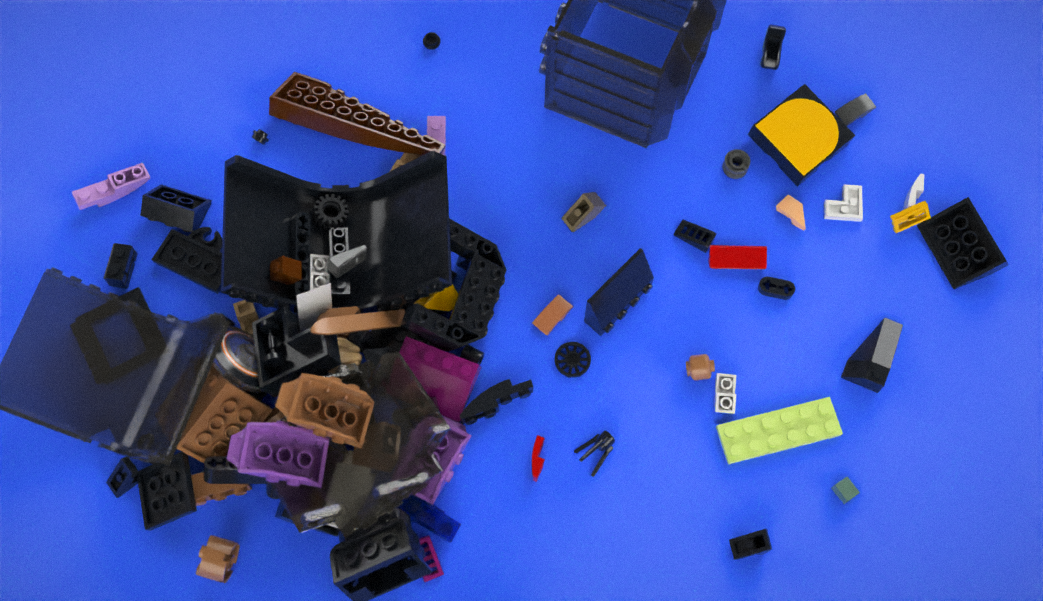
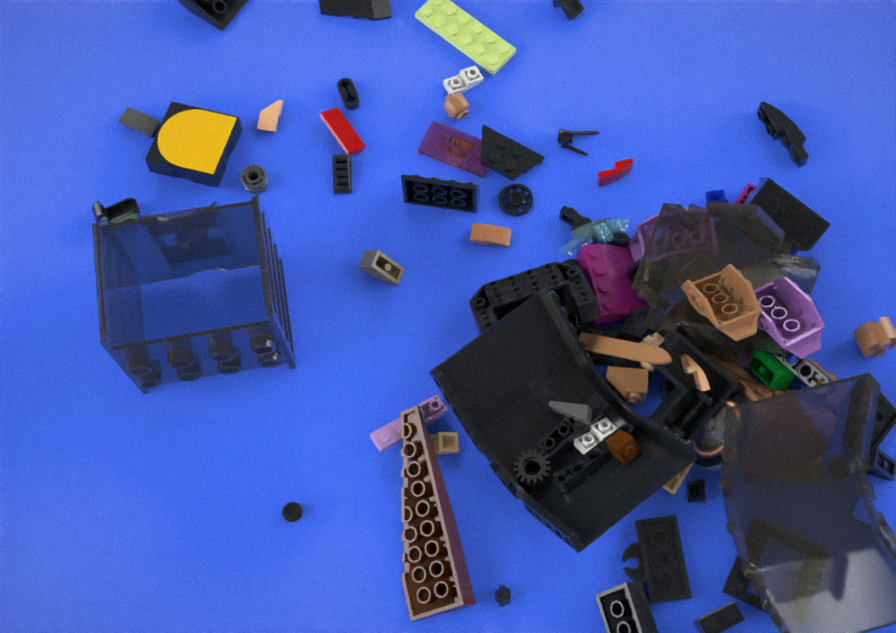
camera: 120 degrees left, 0 degrees up
(289, 362) = (690, 366): none -> light nougat slope
(312, 304) = (636, 399): white sticker -> none
(486, 388) = (600, 229): none -> clear light blue slope
(620, 377) = (506, 155): none -> black wing
(656, 344) = (453, 148): none -> tile
(849, 208) = (237, 81): white tile -> none
(910, 215) = (221, 32): yellow tile -> none
(914, 192) = (189, 43): white slope -> none

